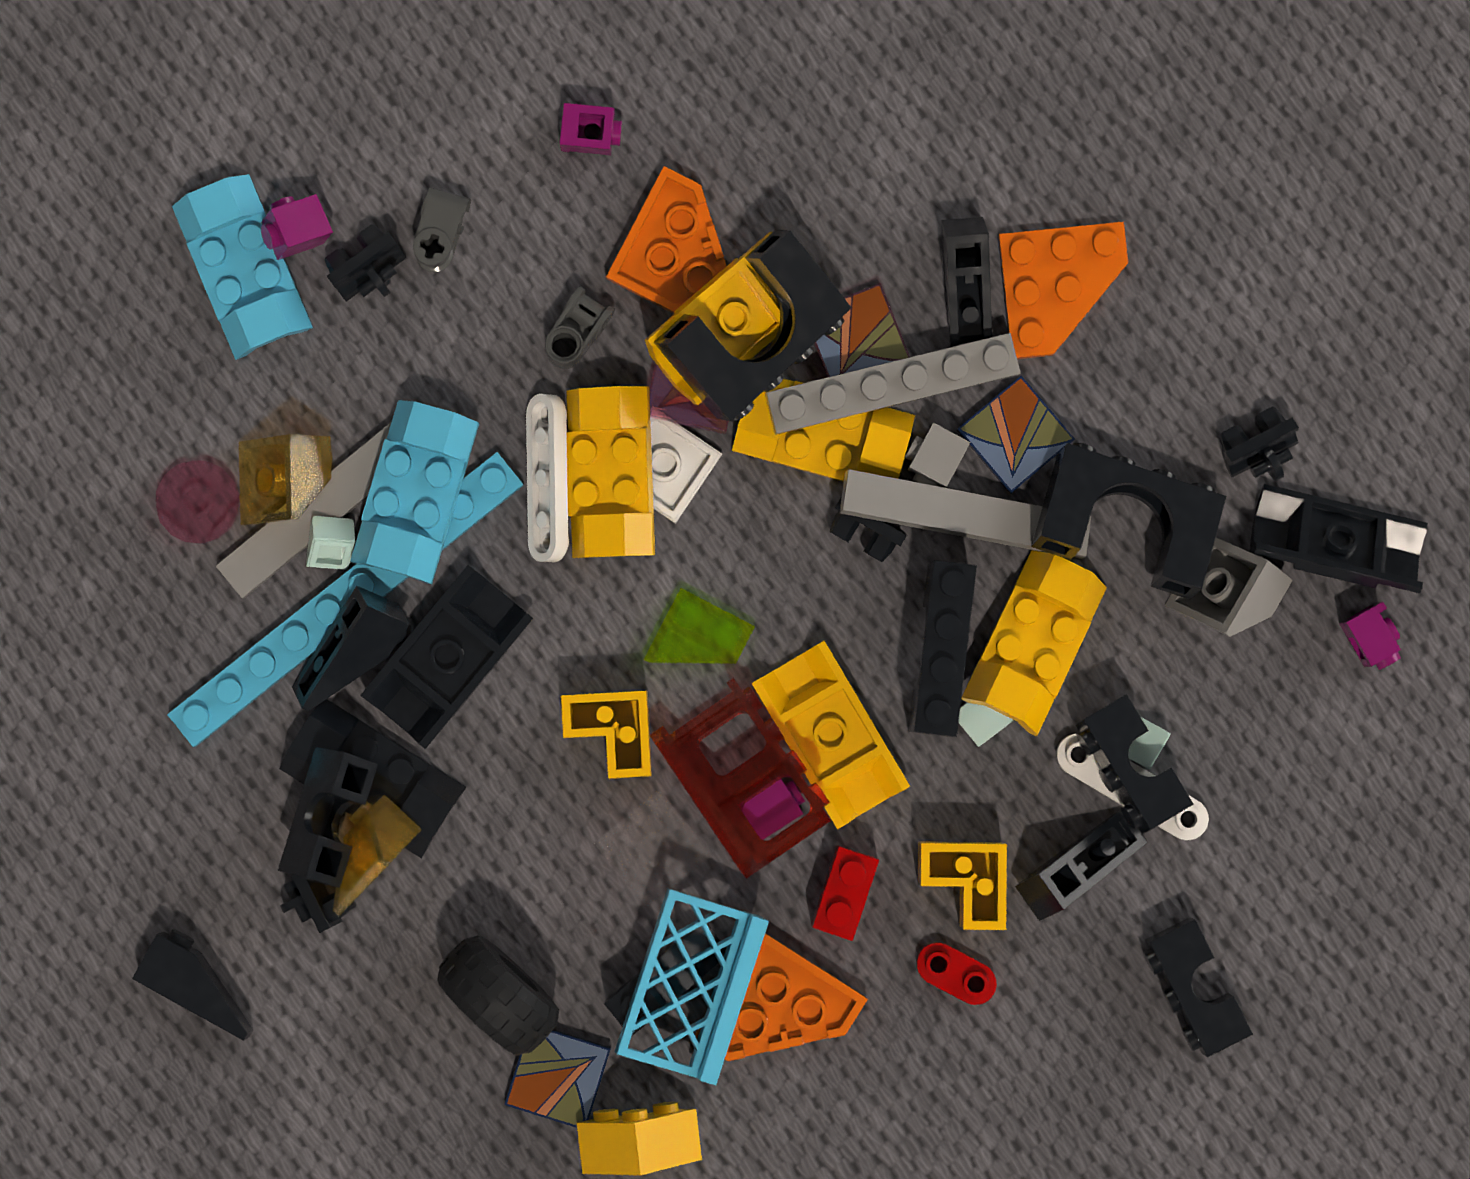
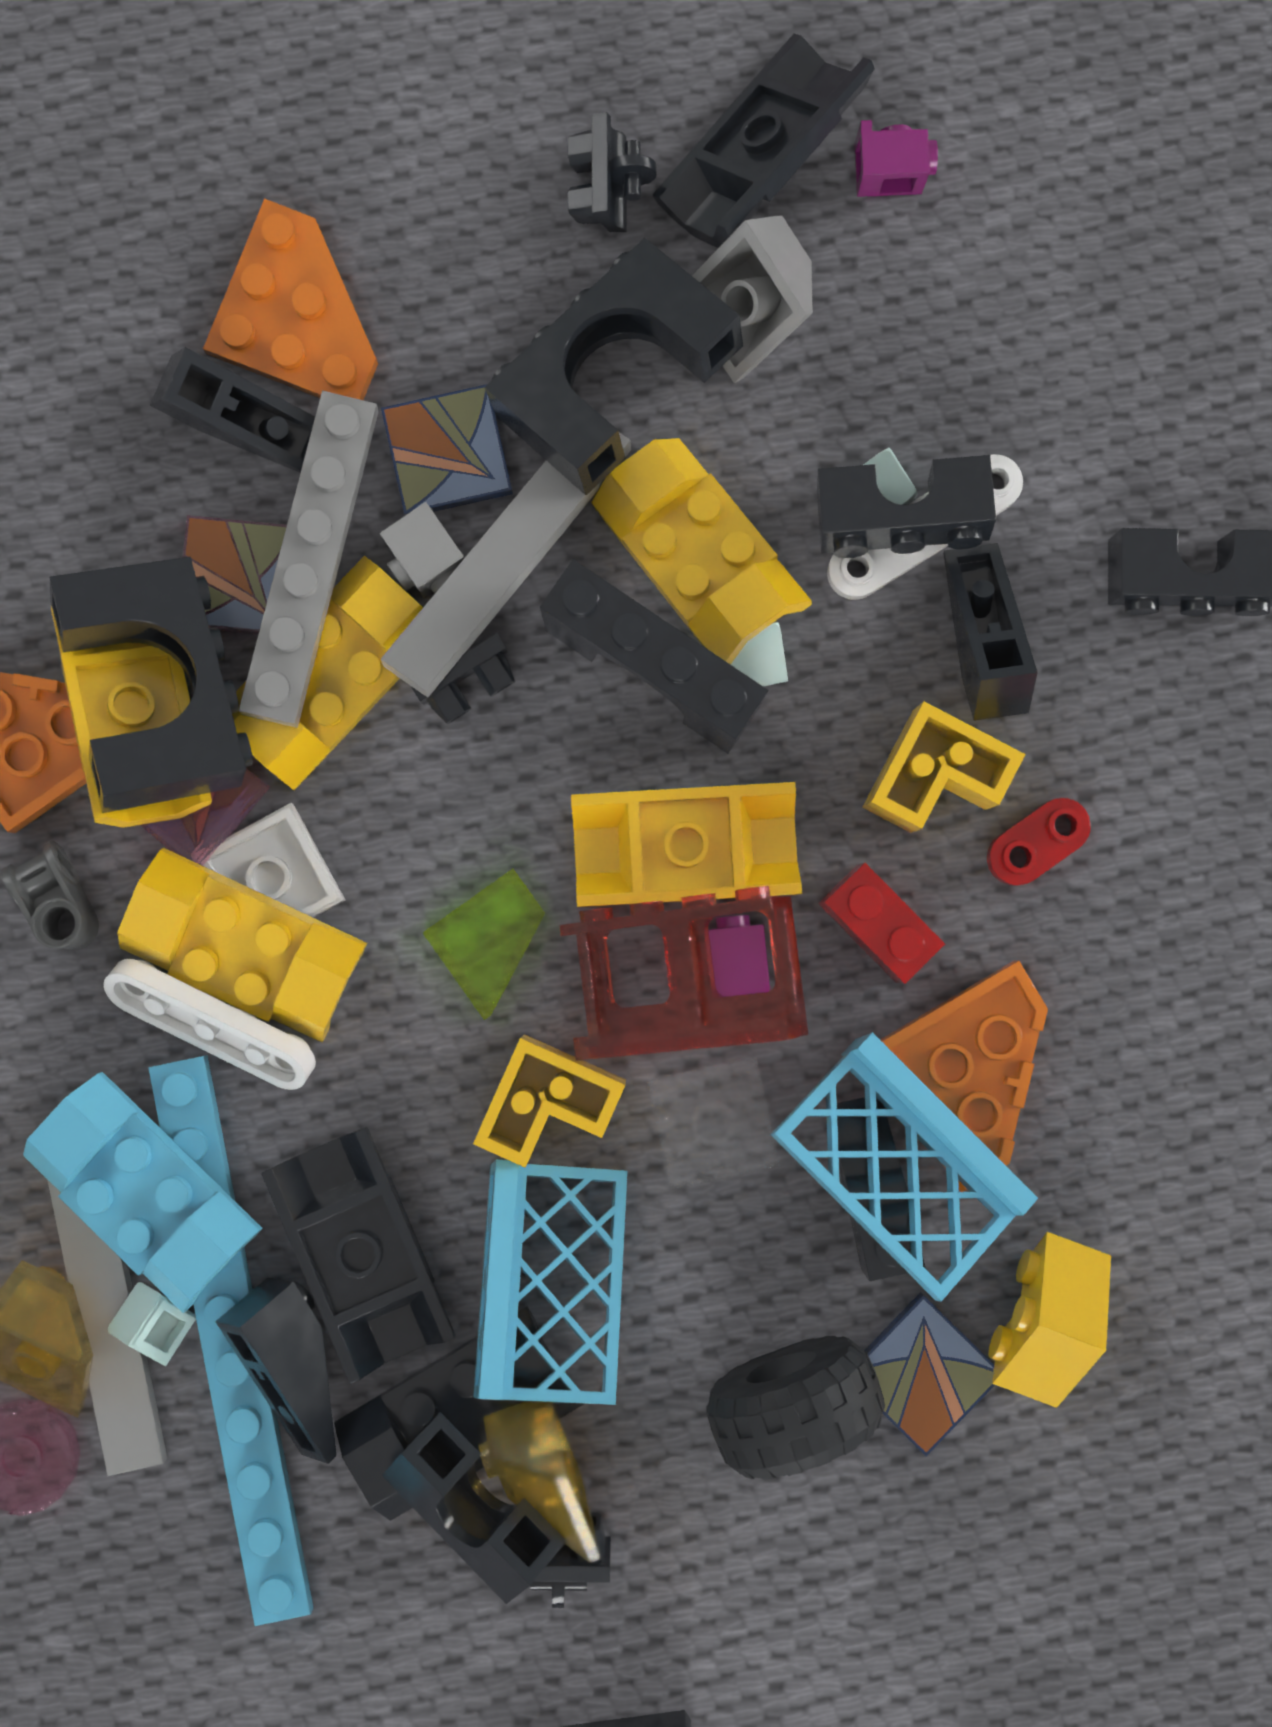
camera: 60 degrees left, 0 degrees up
(481, 759) = (502, 1281): none -> medium azure fence

